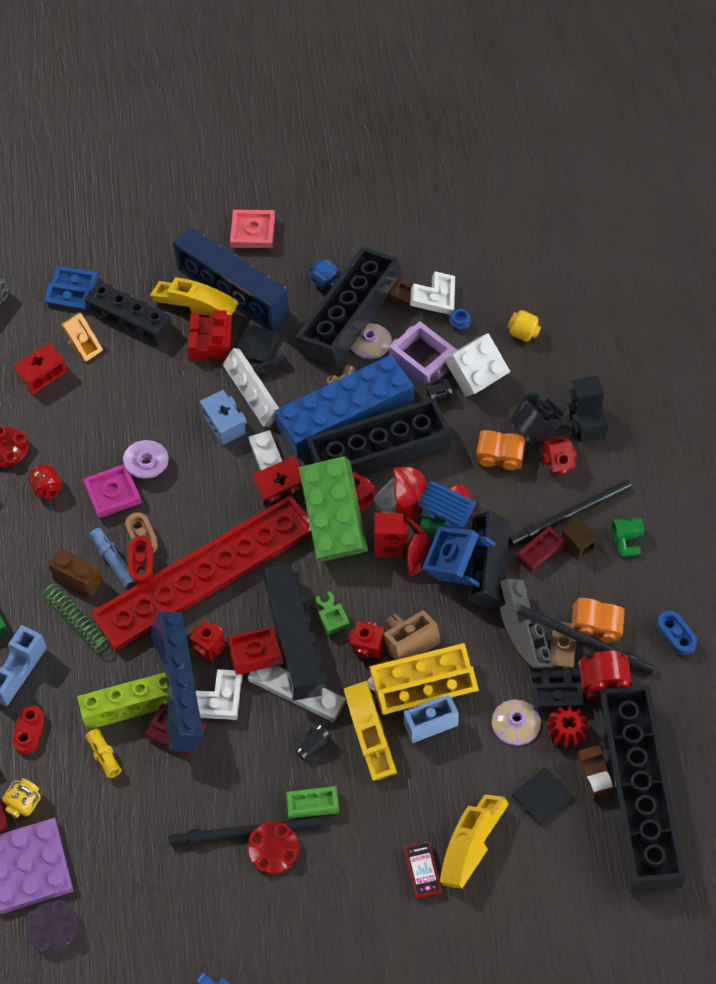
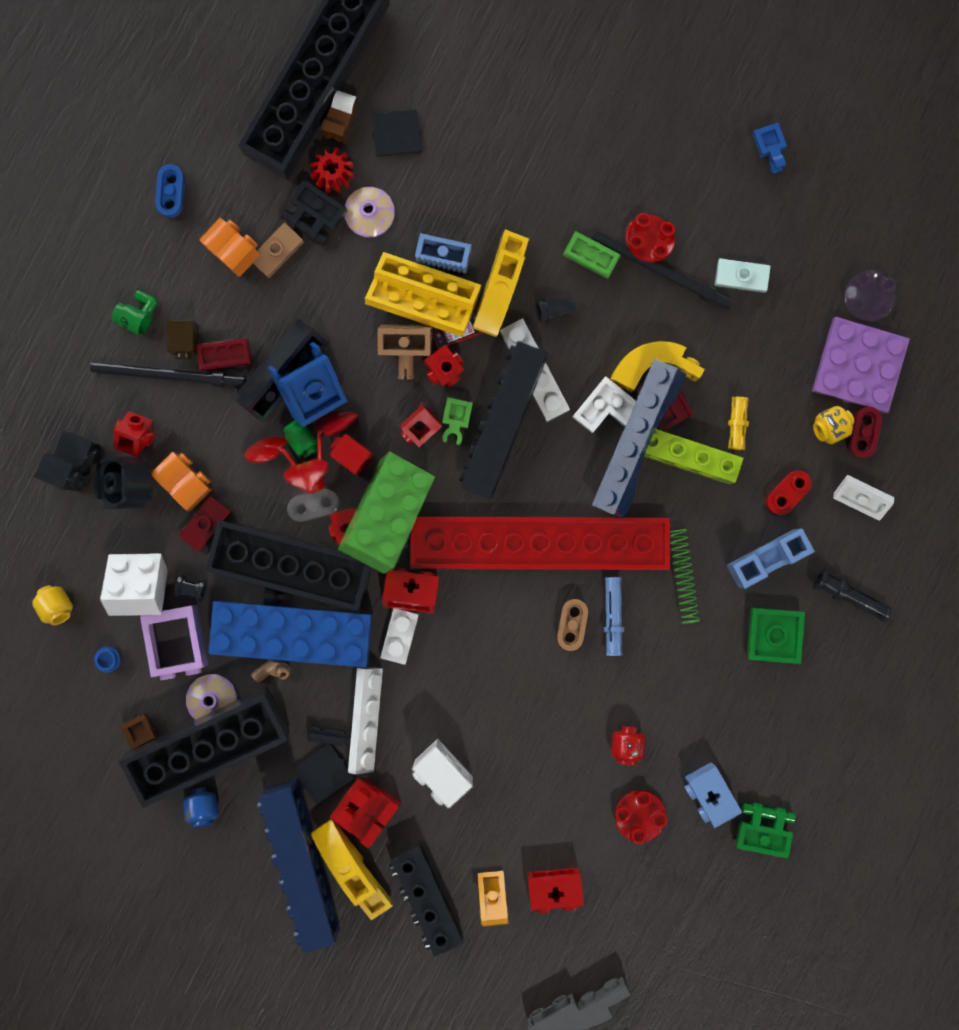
camera: 150 degrees left, 30 degrees up
(70, 287) = (462, 976): blue slope -> none
(75, 572) = (658, 622): reddish brown brick -> none
(112, 491) = (570, 693): dark pink plate -> none
(140, 561) = (593, 590): red plate -> none
(144, 452) = (515, 718): lavender dish -> none
(170, 383) = (442, 774): none -> white brick
(174, 871) = (742, 275): none -> light aqua plate
(207, 640) = (574, 468): red brick -> none
(207, 756) = (640, 360): none -> yellow arch
(223, 417) = (418, 718): medium blue brick -> none
(252, 229) = (232, 923): coral plate -> none
(254, 650) = (548, 429): red tile -> none
(355, 592) = (430, 426): none -> red brick
(423, 870) = (540, 137): tile -> none
(439, 297) = (109, 698): white plate -> none
(446, 504) = (280, 441): blue brick -> none
(462, 437) = (204, 524): none -> dark red plate
(468, 839) = (486, 128): yellow slope -> none
(525, 634) = (302, 279): dark grey slope -> none
(604, 671) = (266, 186): red brick -> none
(633, 659) = (231, 196): black bar -> none

